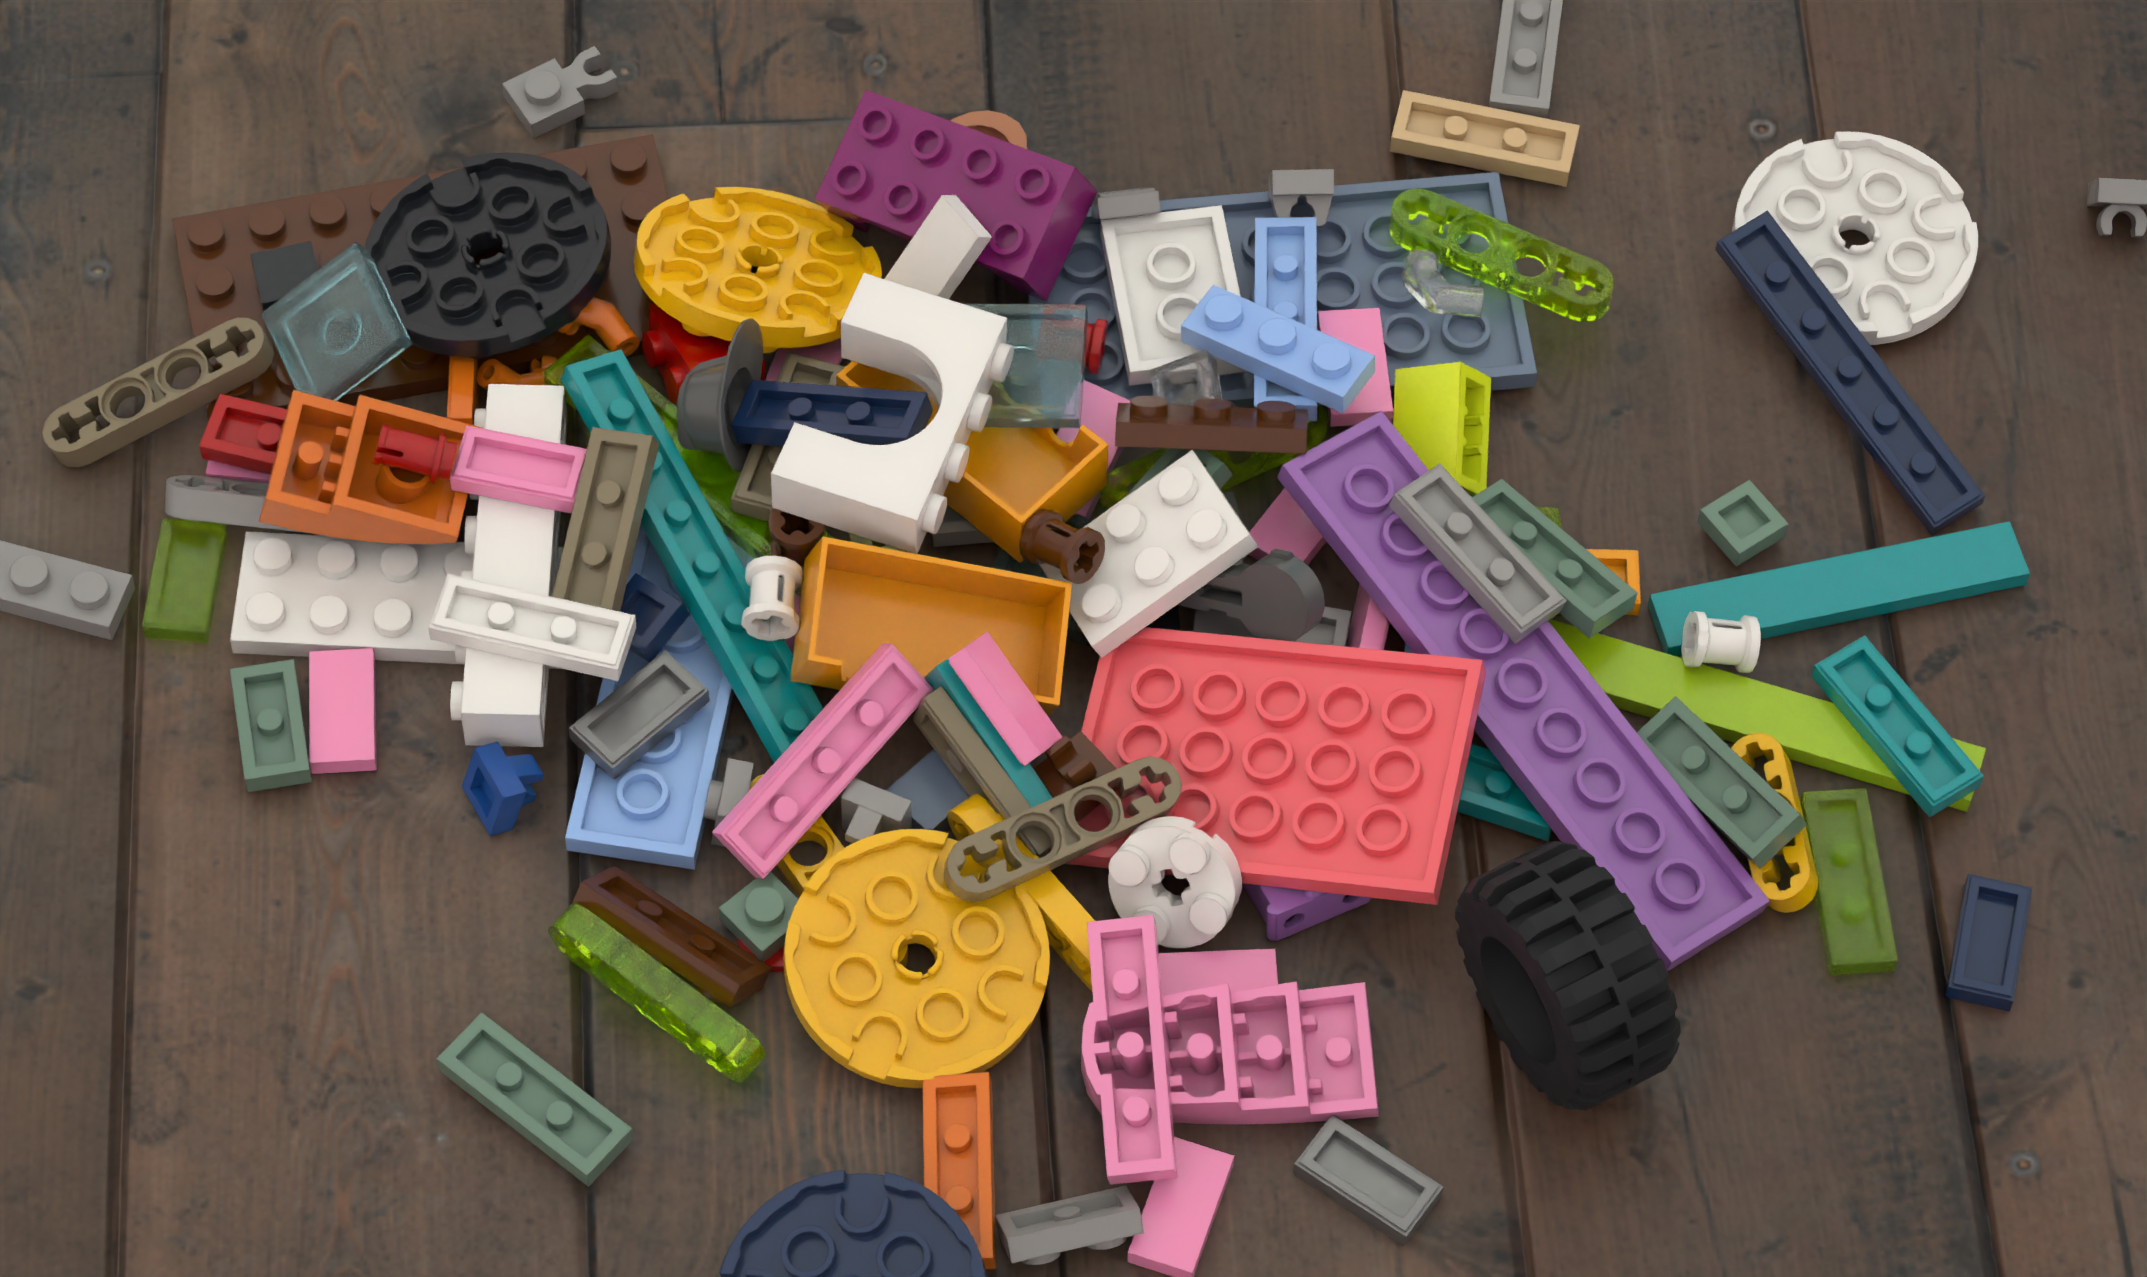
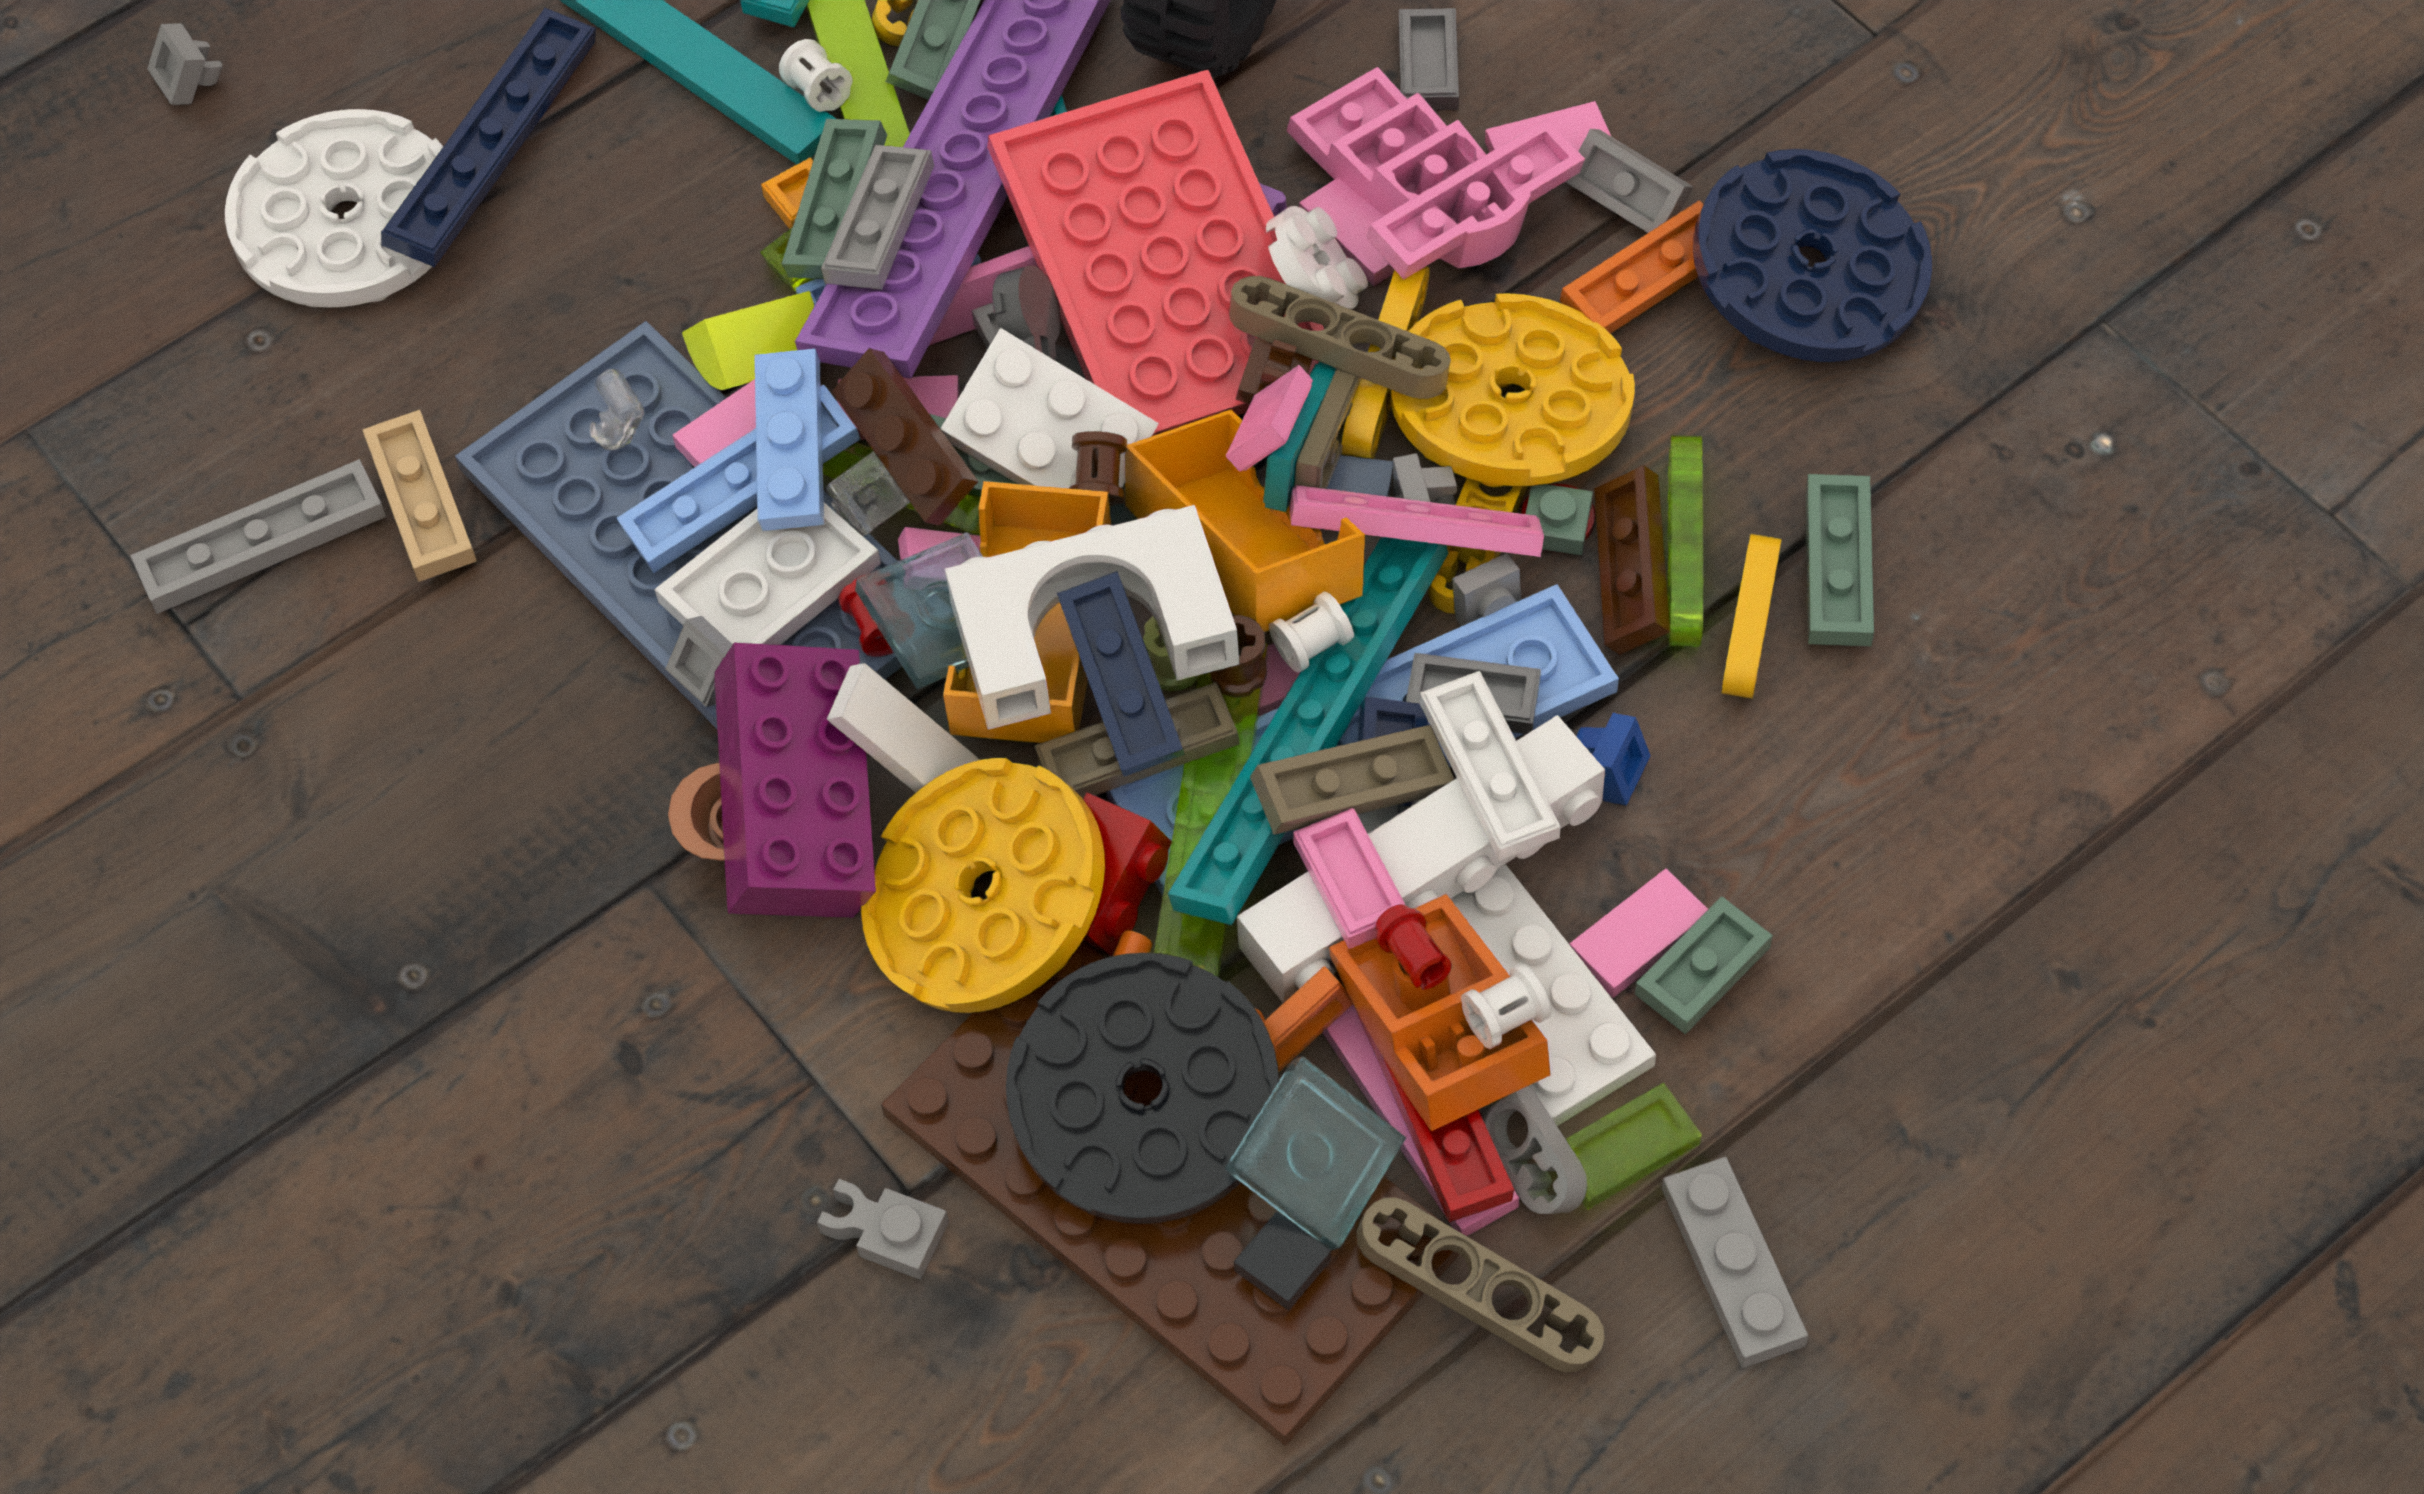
camera: 120 degrees left, 0 degrees up
(308, 475) = (1506, 1005): none -> white bush
(540, 988) = (1751, 616): none -> yellow beam
(714, 394) = (1156, 780): dark grey piece -> none
(1312, 185) = (591, 552): light grey tile -> none
(1505, 247) = (547, 394): clear neon green beam -> none
(1742, 523) = (684, 134): sand green plate -> none

